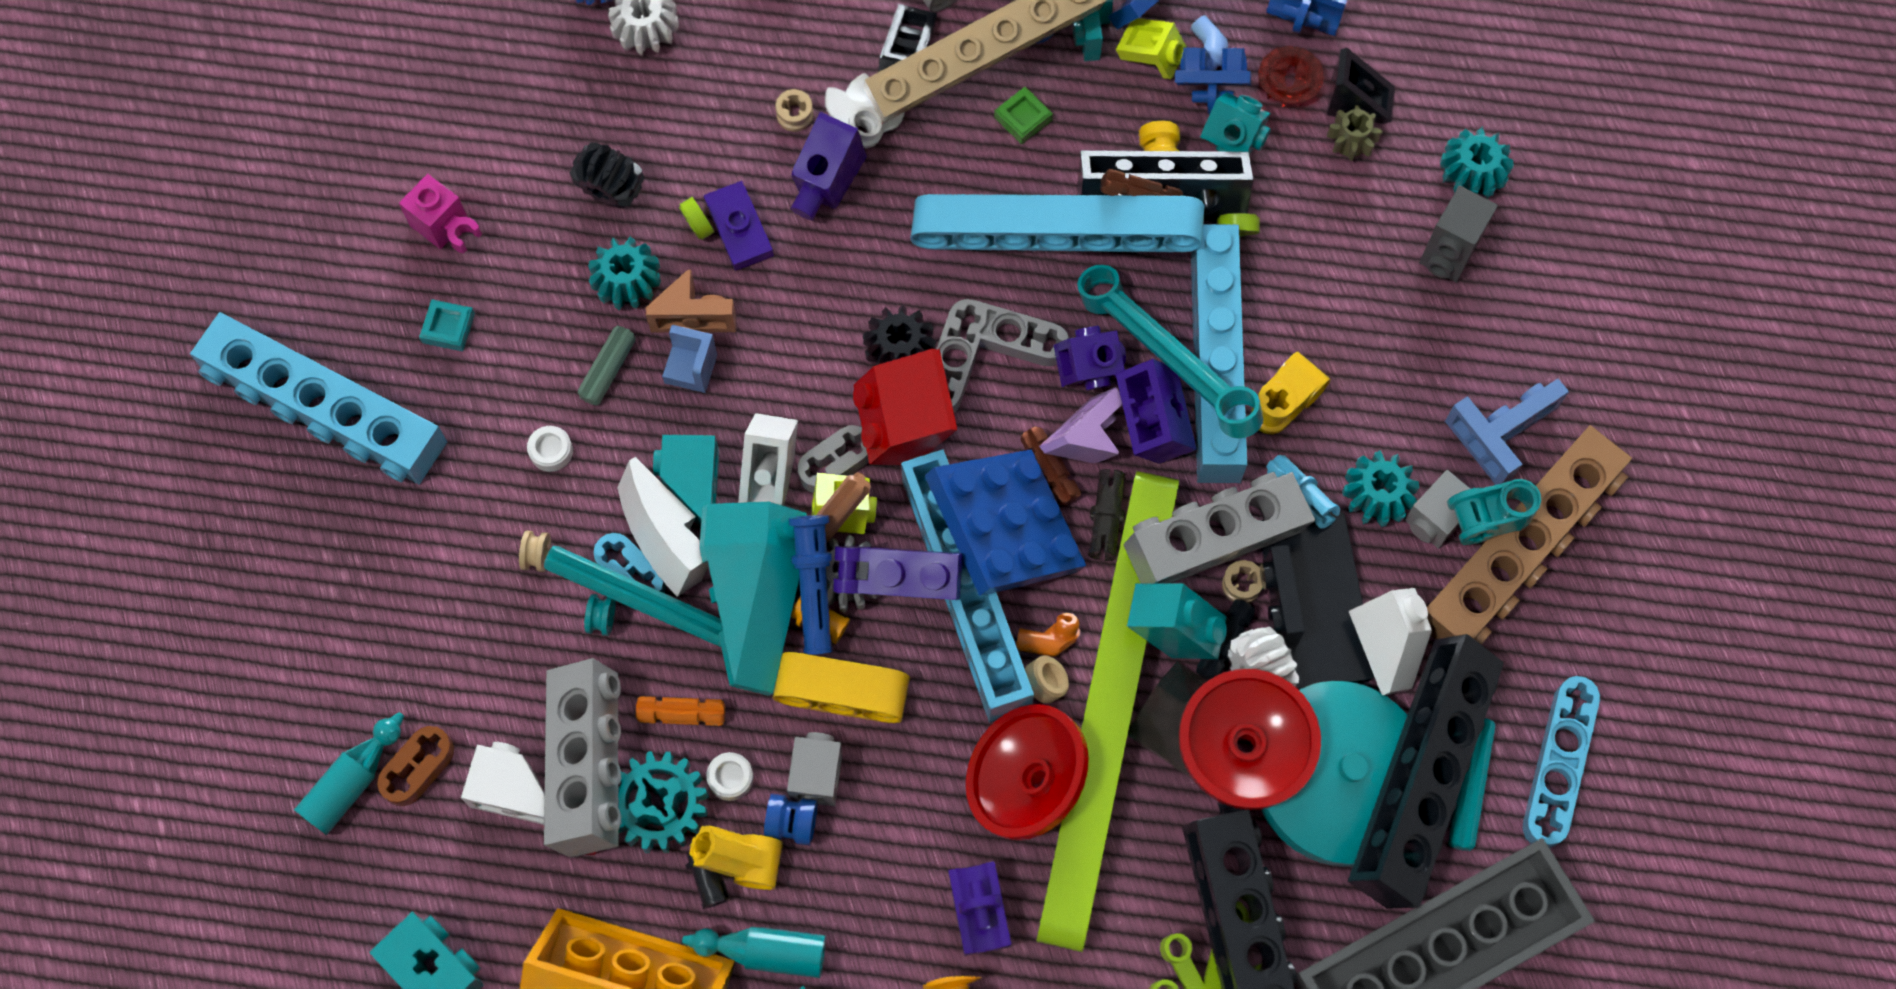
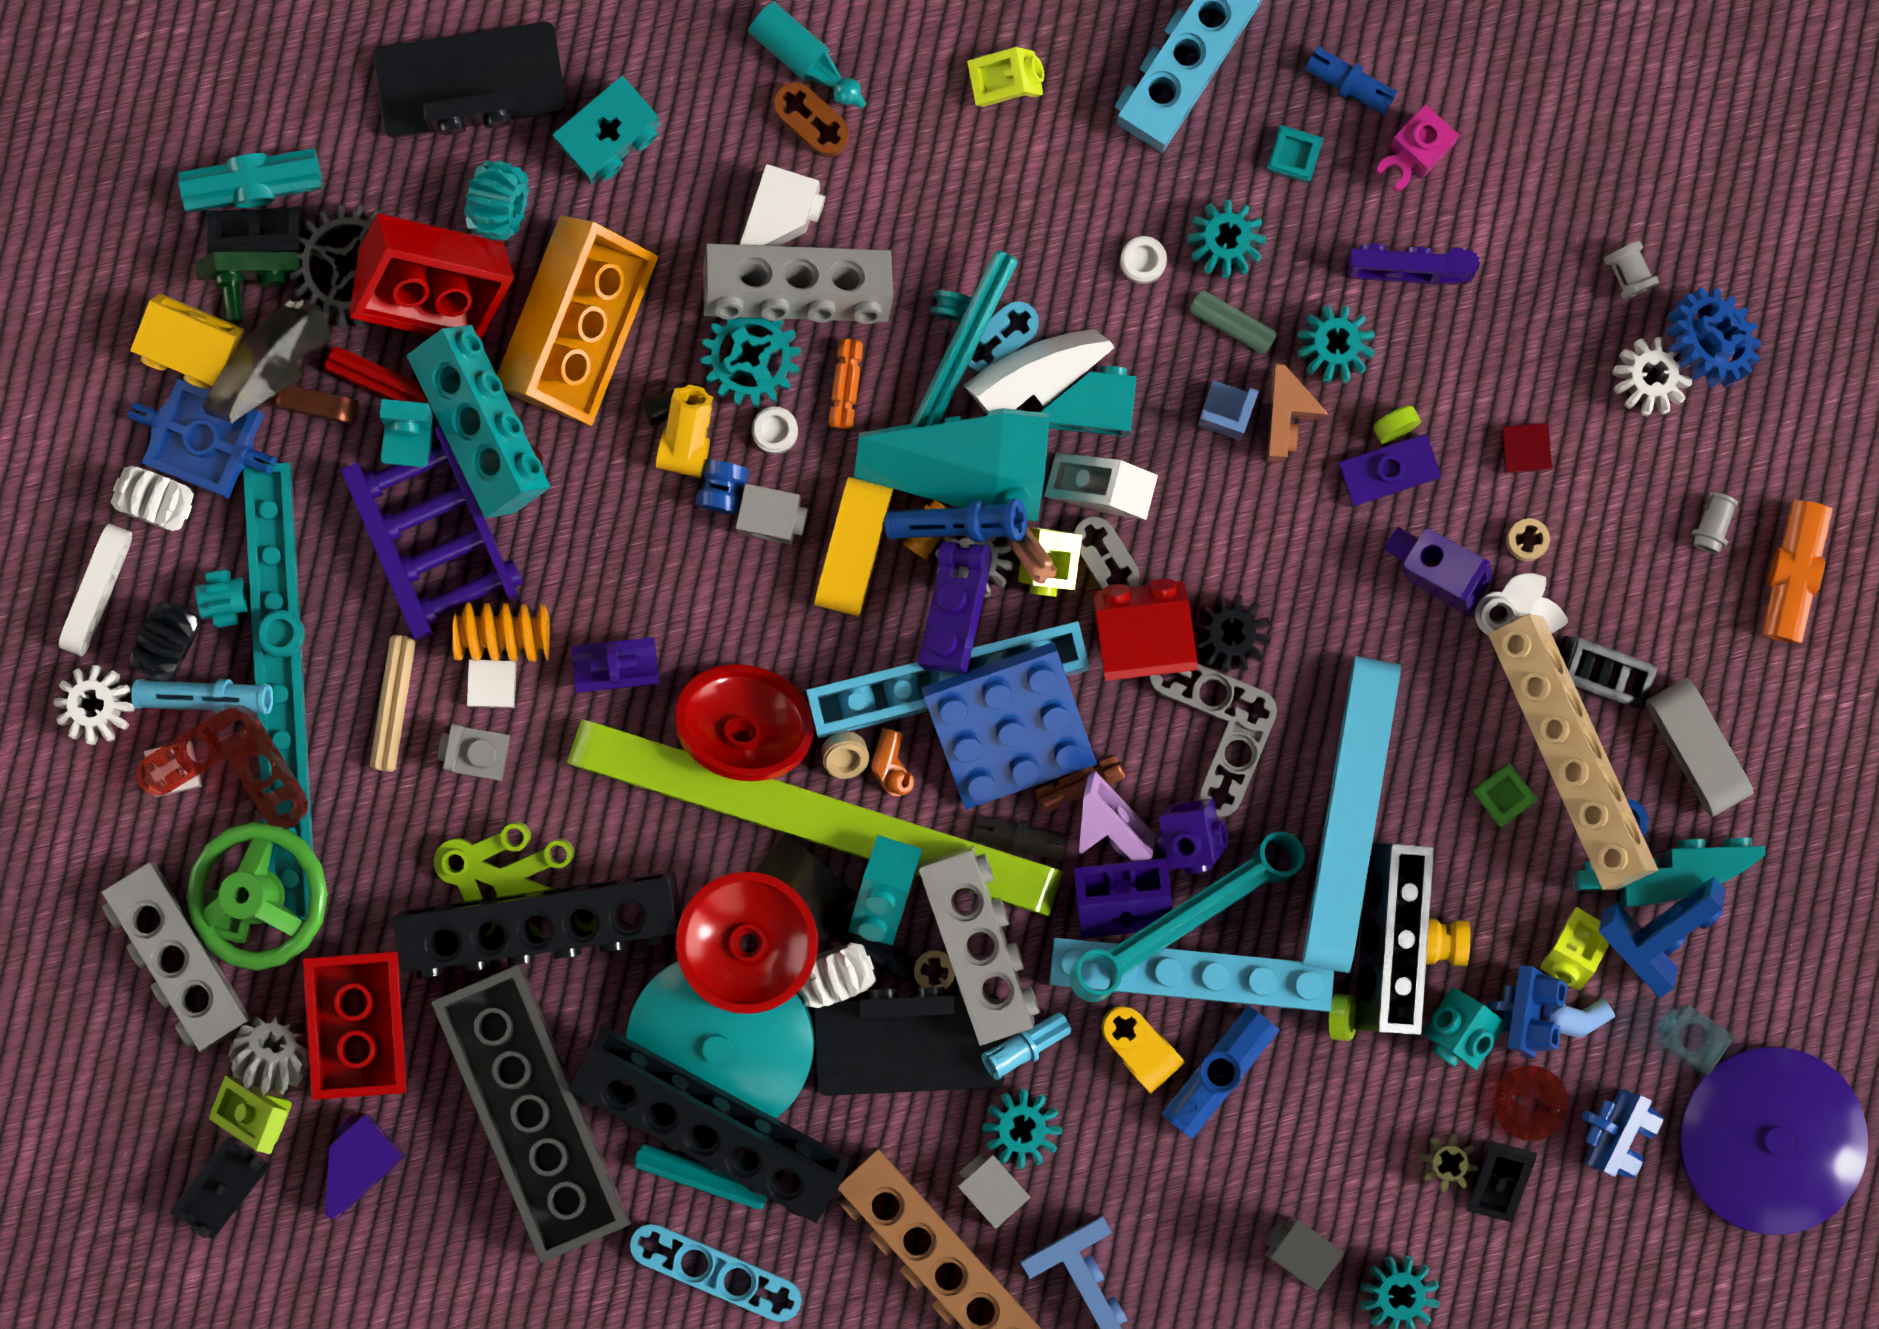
camera: 95 degrees right, 15 degrees up
(372, 583) = (1006, 76): none -> neon yellow bracket
(377, 280) = (1350, 80): none -> blue pin
(514, 382) = (1243, 243): none -> teal gear
(534, 550) = (1026, 242): tan bush -> none
(549, 41) = (1631, 270): none -> light grey bush
(549, 216) = (1412, 266): none -> dark purple hinge
(607, 175) = (1450, 329): black gear -> none
(712, 117) = (1526, 448): none -> dark red tile
(765, 949) = (596, 455): teal wheel -> none
(1116, 183) = (1374, 905): copper axle -> none
(1325, 336) = (1241, 1048): none -> blue piece
(1393, 637) = (853, 1113): white slope -> none
(1485, 511) = (971, 1228): teal piece -> none

